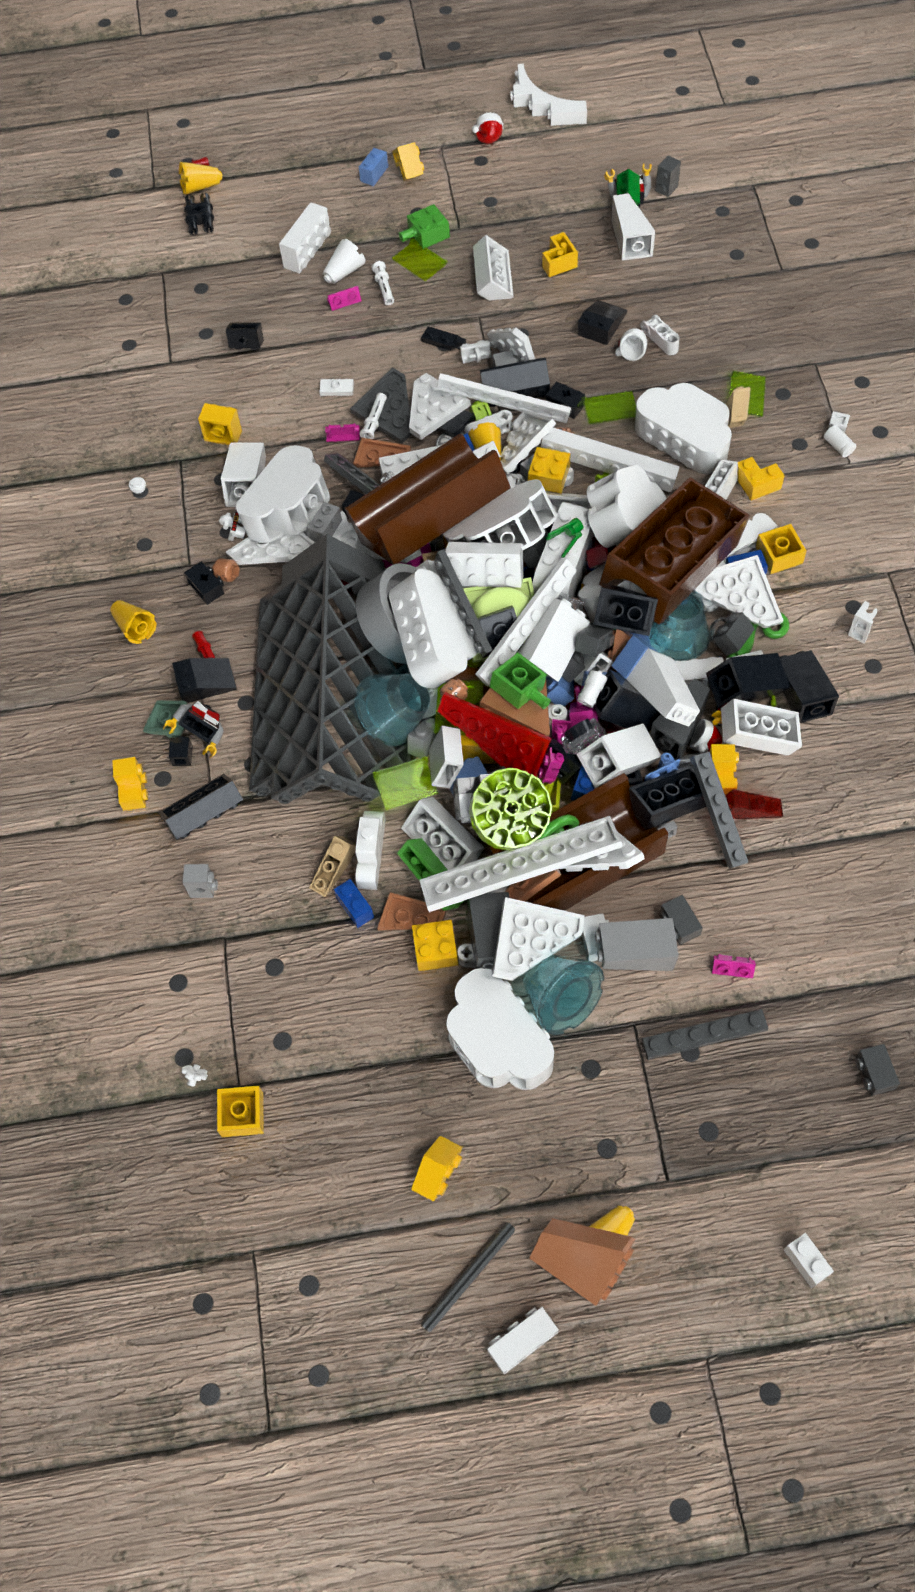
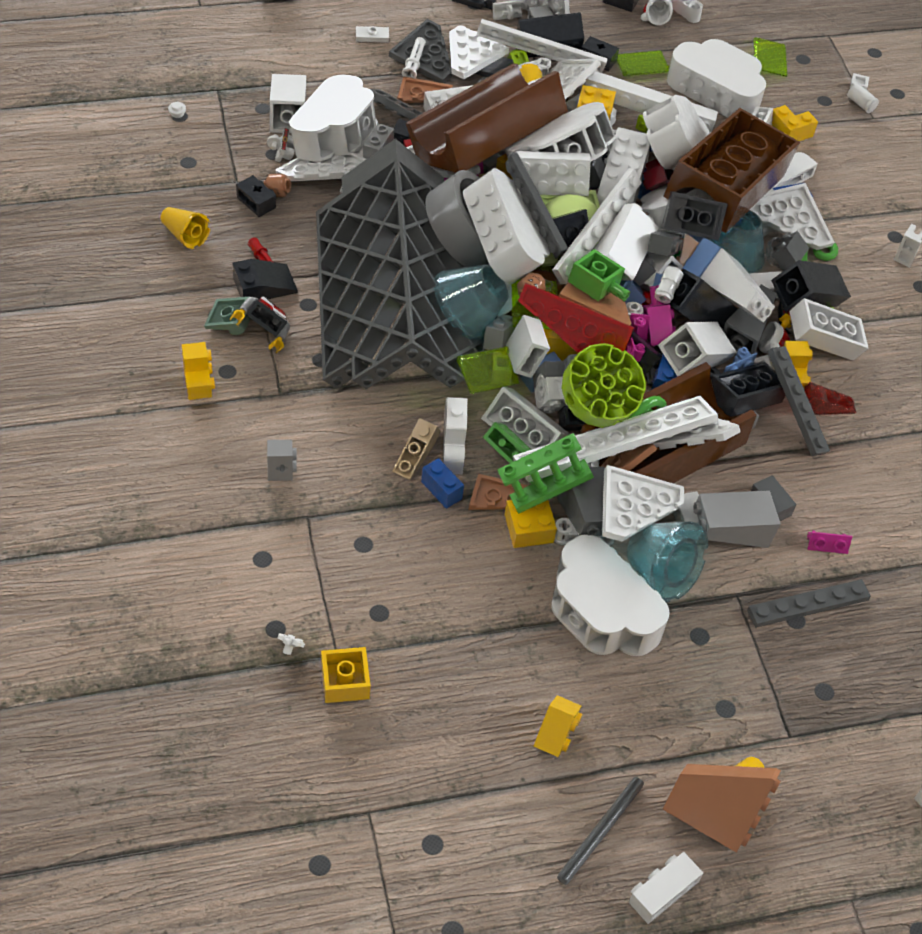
camera: 15 degrees left, 10 degrees down
(180, 751) = (246, 344): black brick -> none
(201, 806) = (273, 394): slope -> none
(220, 424) = (260, 57): yellow brick -> none
(349, 432) = (376, 72): dark pink hinge -> none
(449, 916) = (551, 485): none -> bright green fence
(571, 528) = (632, 145): green plant -> none
(582, 735) = (661, 327): clear piece -> none
(738, 406) = (769, 59): tan slope -> none
(781, 548) = (824, 182): yellow brick -> none
(810, 688) = (868, 300): black slope -> none

